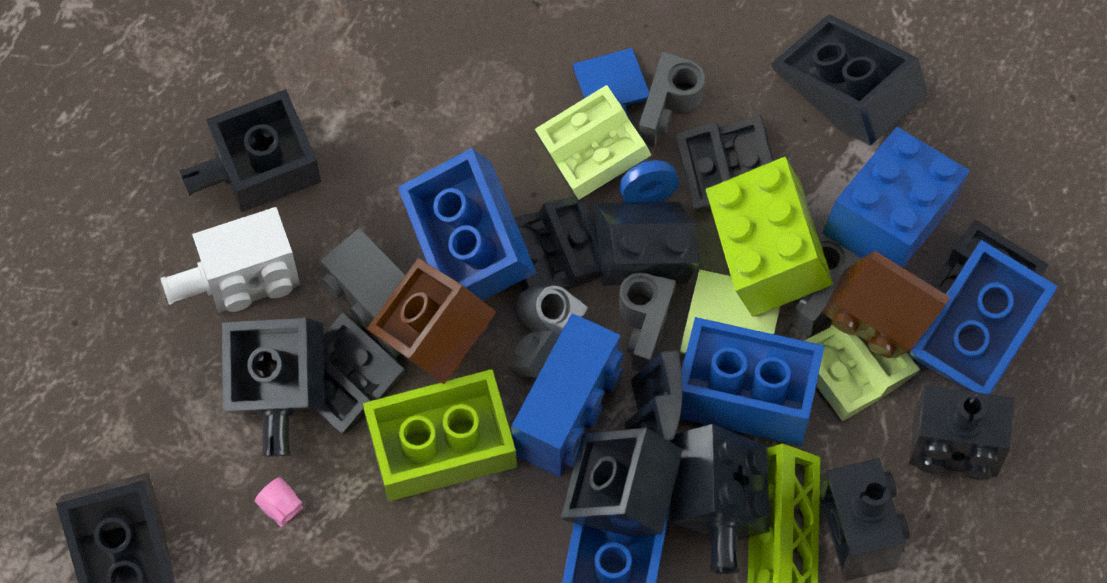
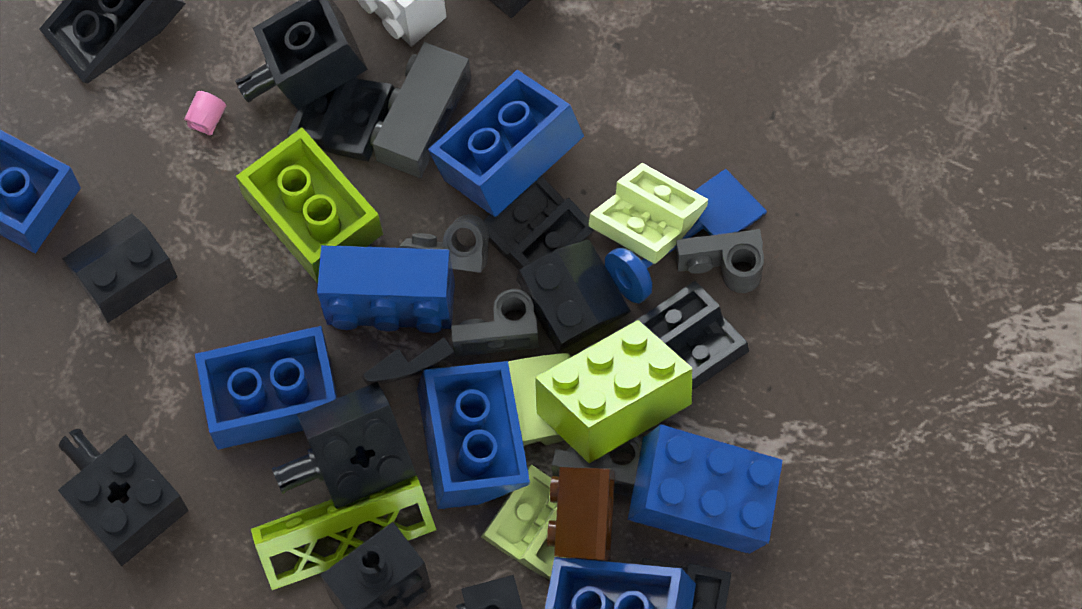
camera: 70 degrees right, 0 degrees up
(431, 320) = (395, 146): reddish brown slope -> none
(622, 482) = (309, 359): black slope -> none
(853, 78) = (825, 407): black slope -> none

